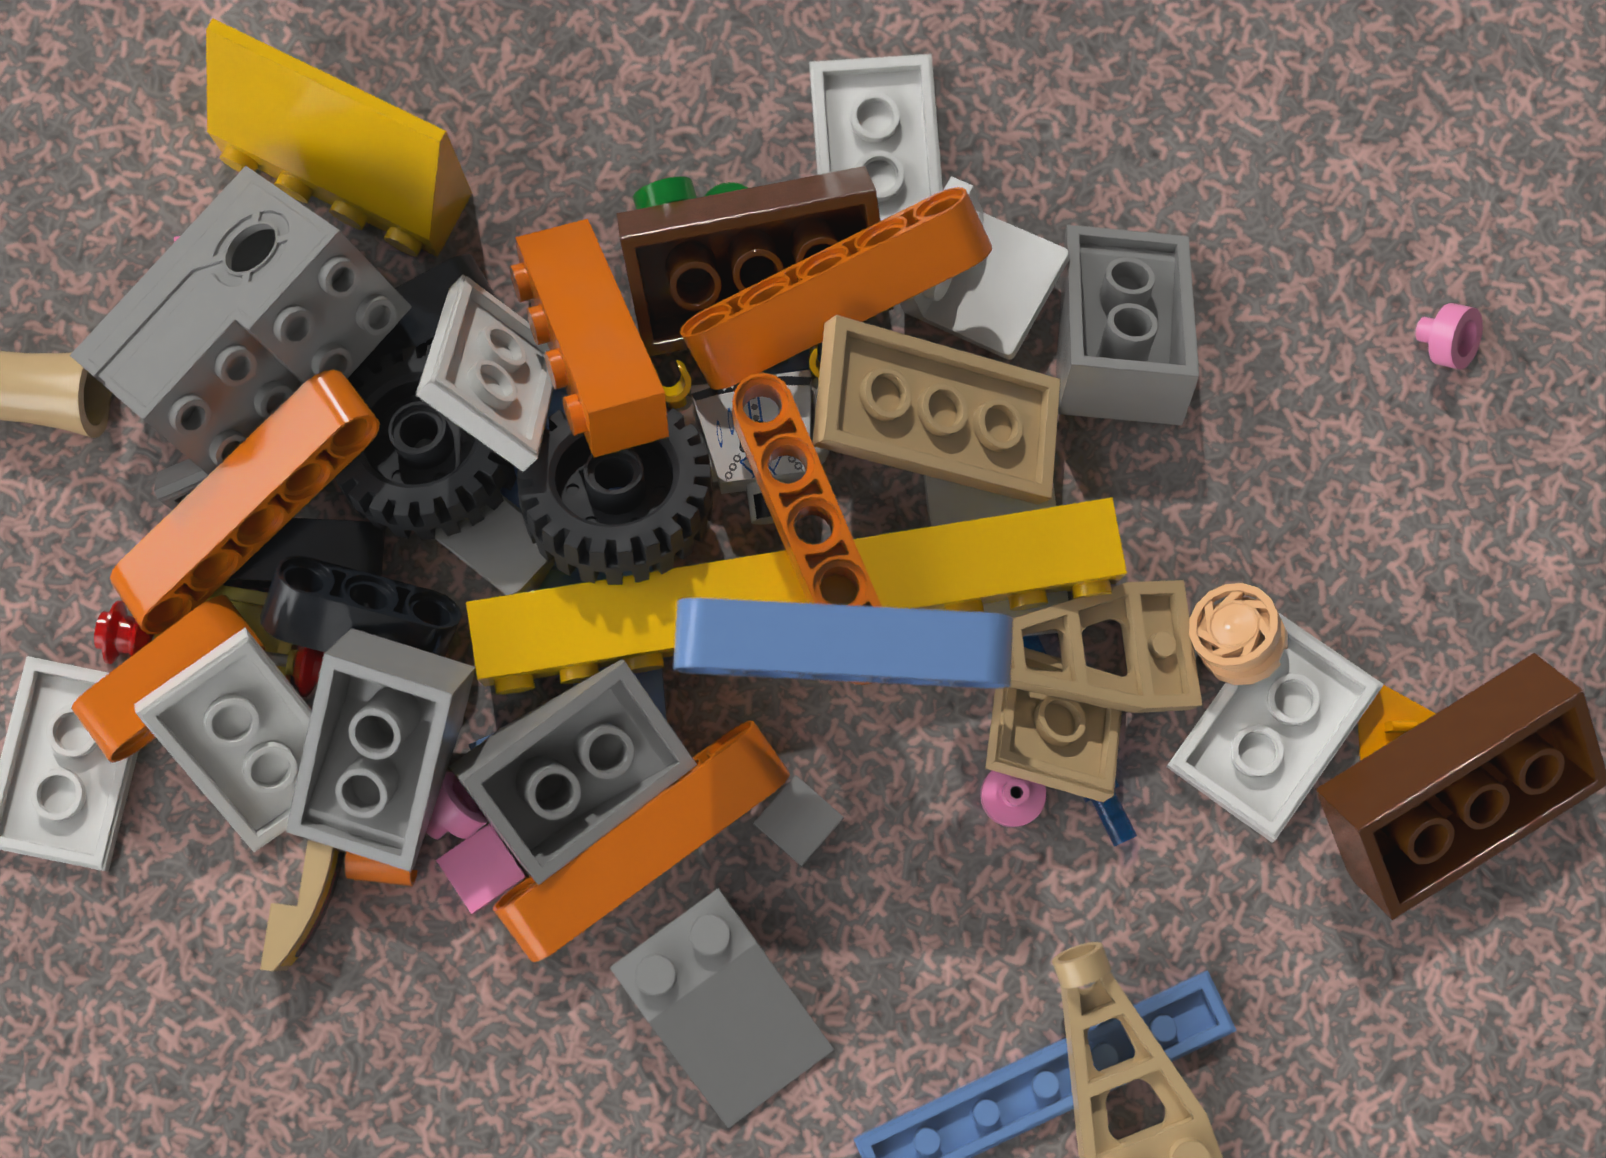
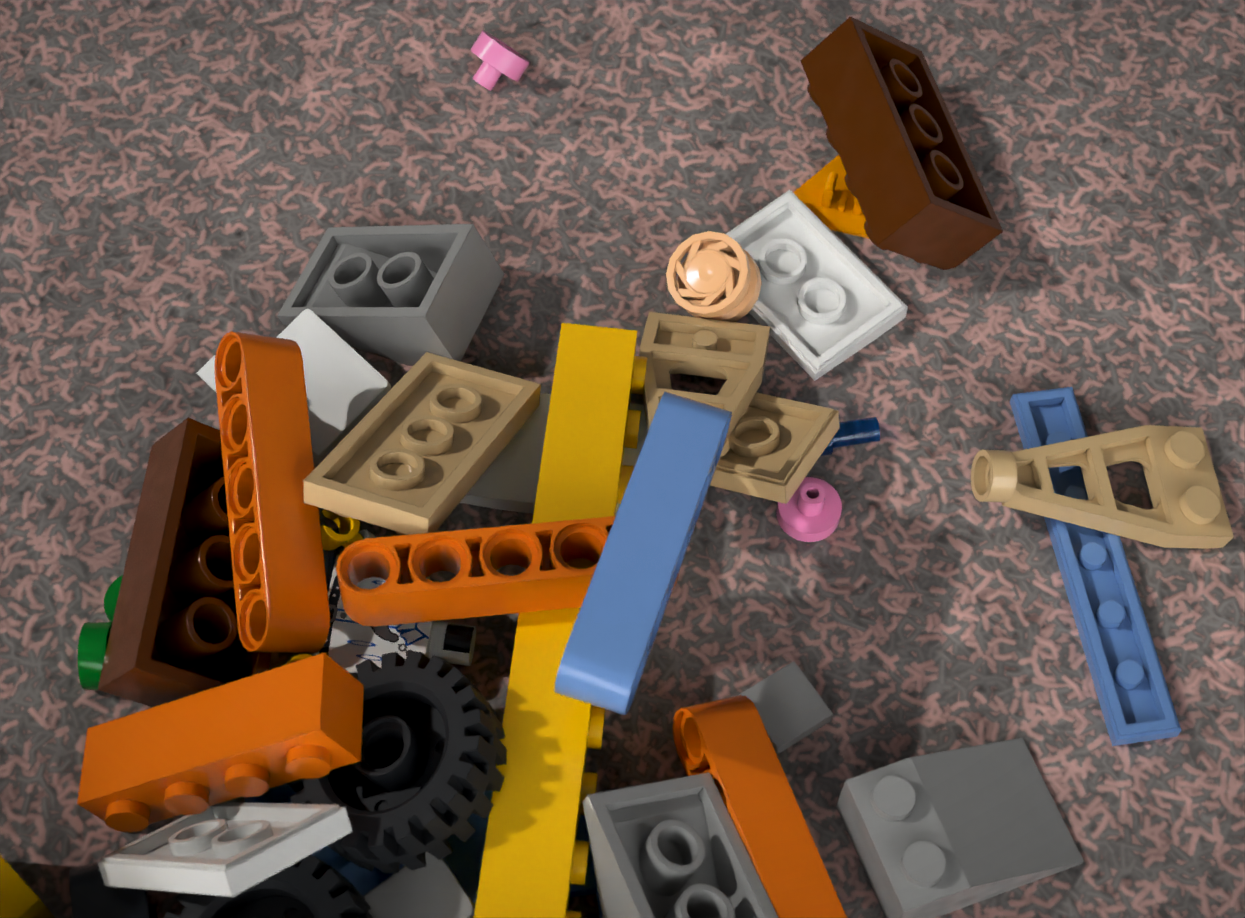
camera: 75 degrees left, 20 degrees down
(882, 119) = (99, 445): white tile -> none

